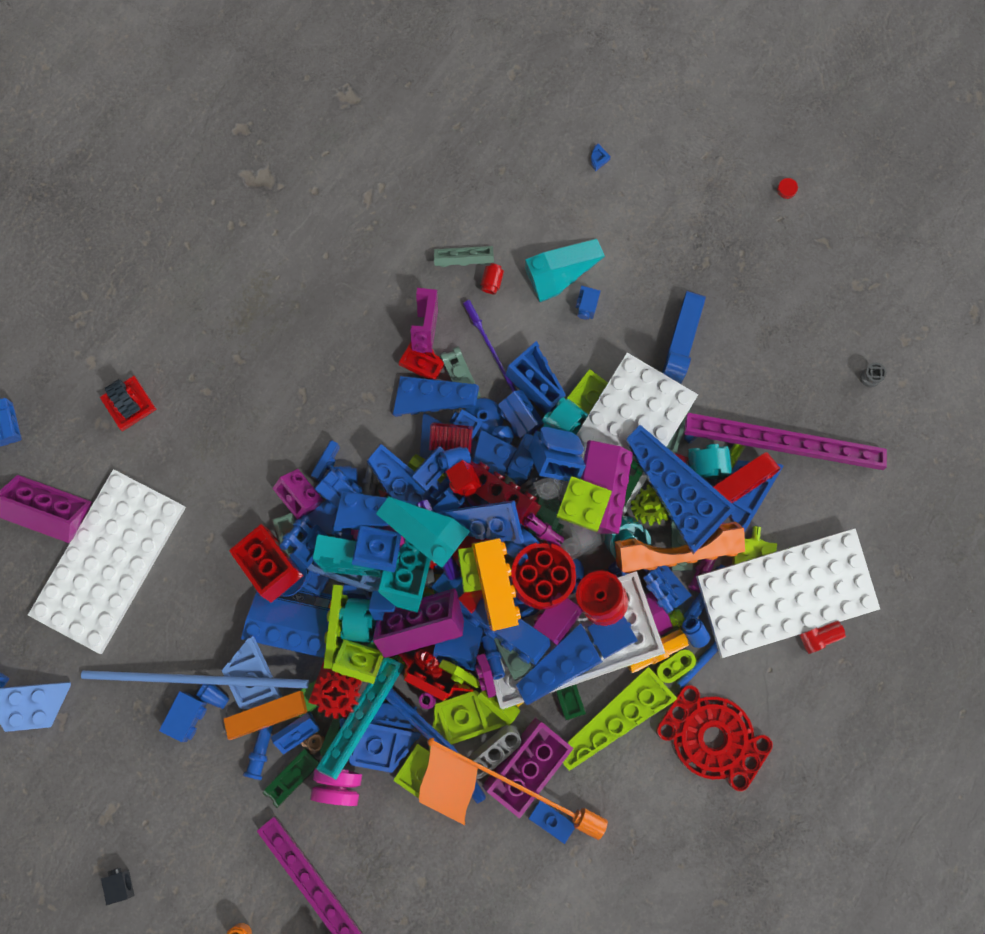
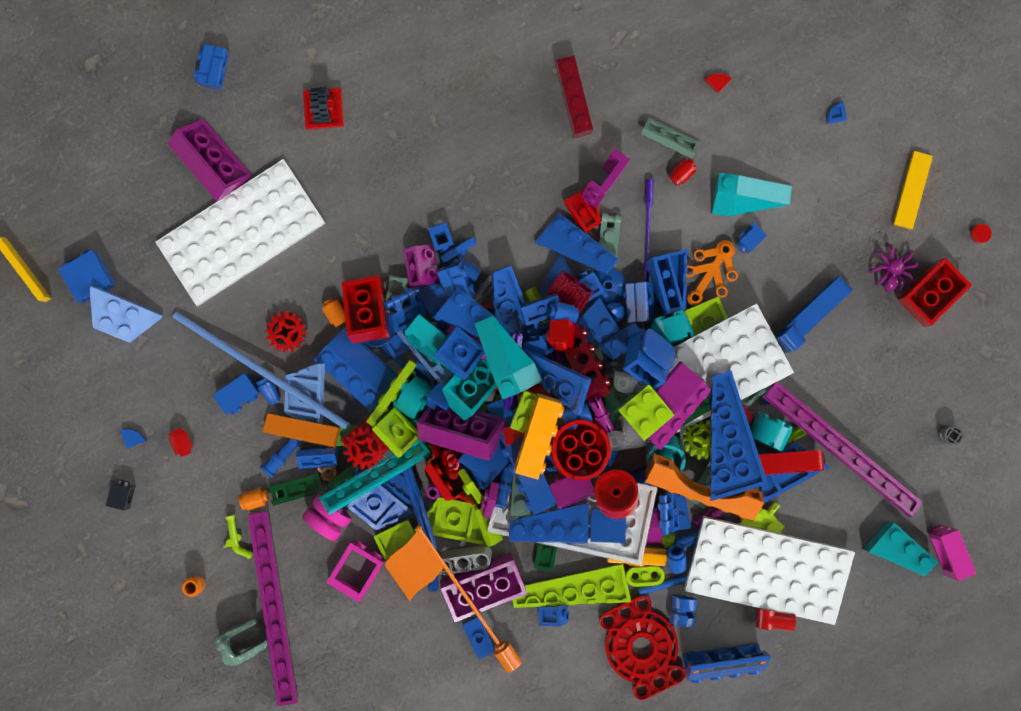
camera: 30 degrees right, 10 degrees up
(100, 821) = (132, 437): none -> blue tile
(151, 797) = (180, 442): none -> red brick
(194, 635) = (289, 340): none -> red gear
(238, 584) = (334, 312): none -> orange brick
(254, 812) = (253, 498): none -> orange brick
(255, 863) = (234, 538): none -> lime piece
(300, 452) = (441, 231): none -> blue brick
(355, 267) = (574, 97): none -> dark red brick
(394, 848) = (345, 587): none -> dark pink window
(478, 186) = (718, 81): none -> red tile
(570, 349) = (712, 270): none -> orange plant
(611, 756) = (553, 615): none -> blue bracket
(705, 185) = (912, 190): none -> yellow tile
(731, 258) = (894, 268): none -> magenta animal
(732, 678) = (683, 611): none -> blue wheel
(779, 258) = (934, 292): none -> red brick
(801, 704) = (725, 662): none -> blue piece
(893, 502) = (900, 549): none -> teal wedge
(942, 478) = (951, 552): none -> dark pink window

